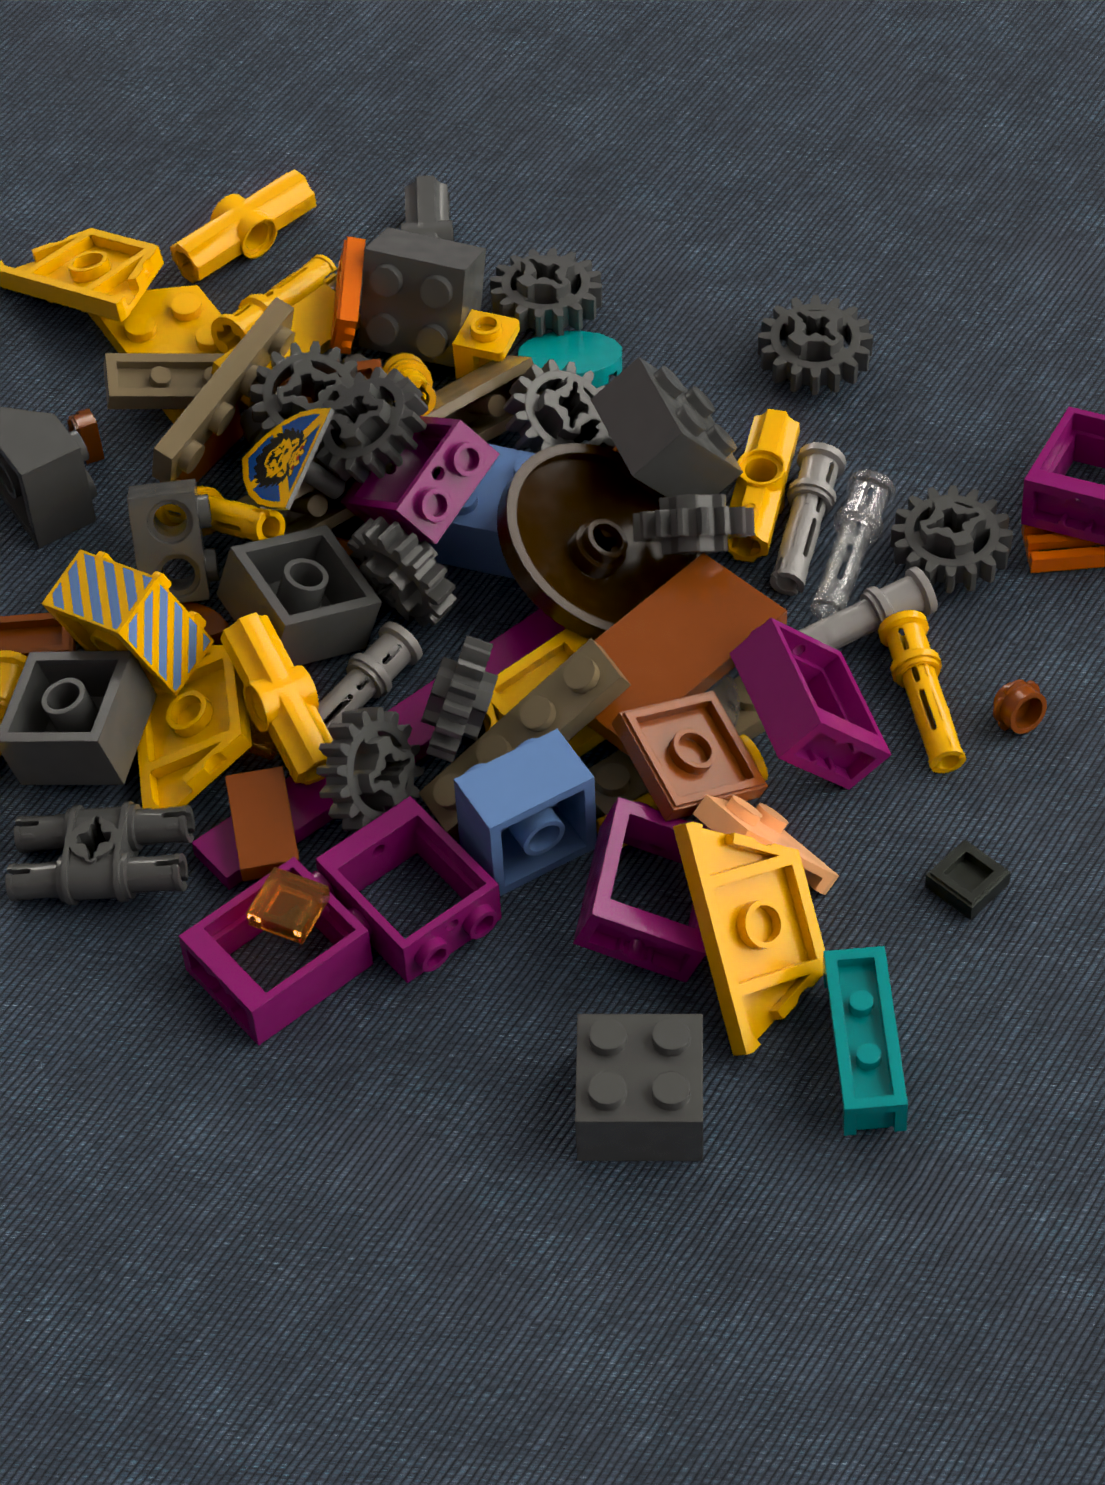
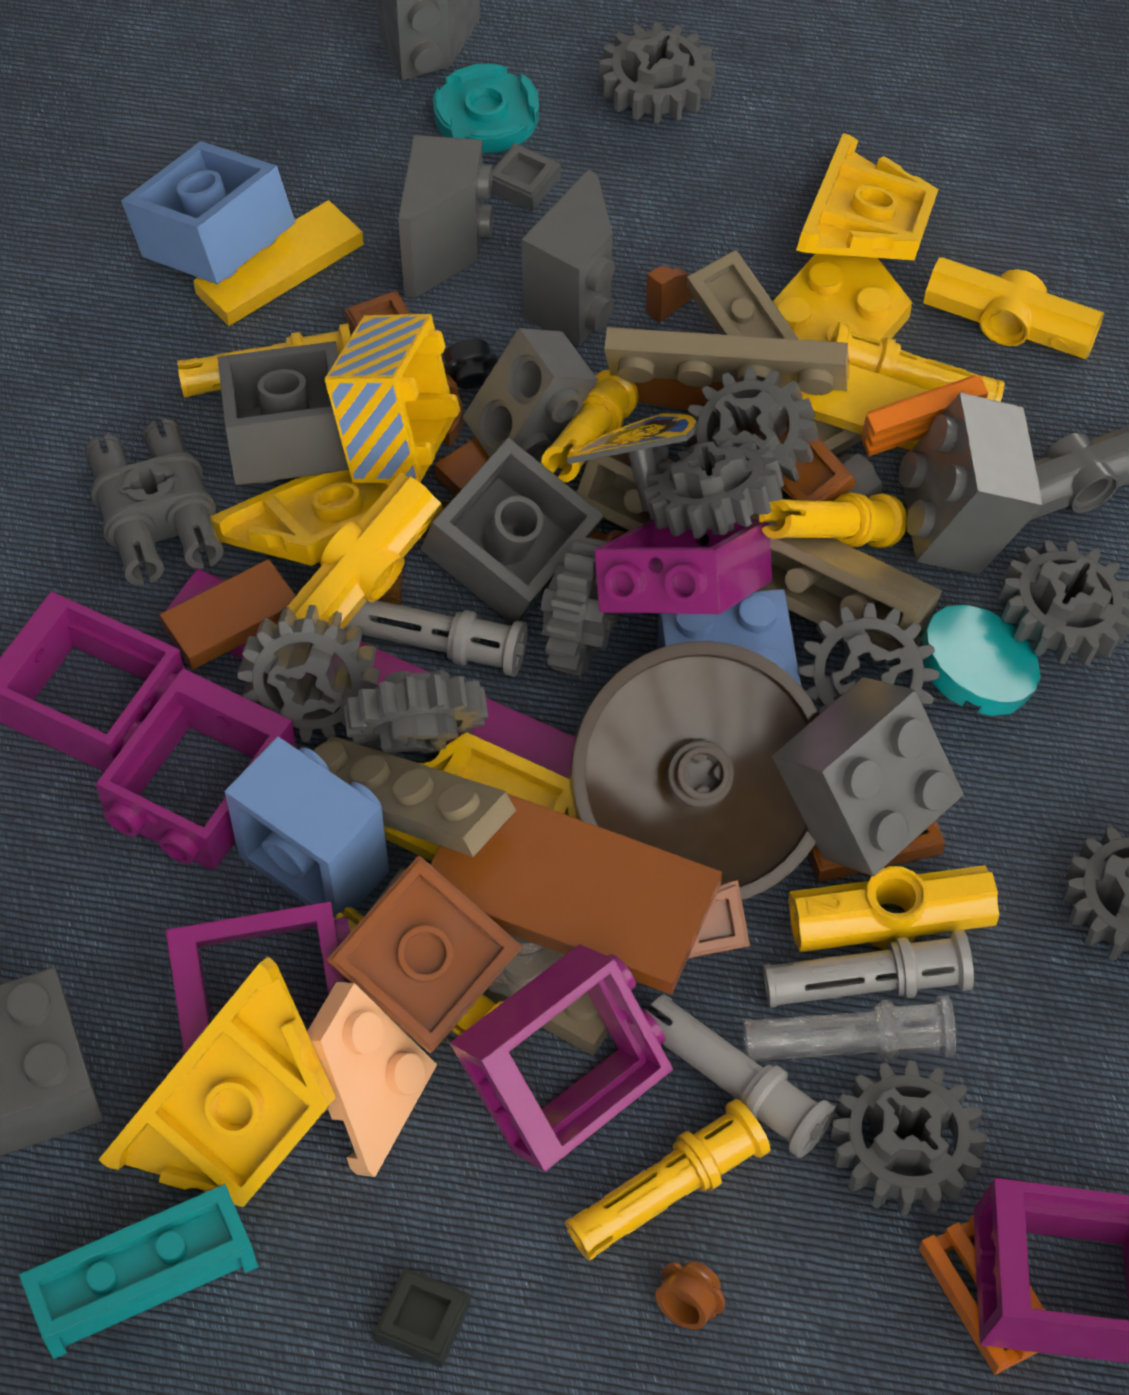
camera: 65 degrees right, 5 degrees up
(288, 905) = (105, 663): clear orange tile -> none
(483, 339) = (945, 564): yellow bracket -> none
(693, 524) = (748, 846): dark grey gear -> none

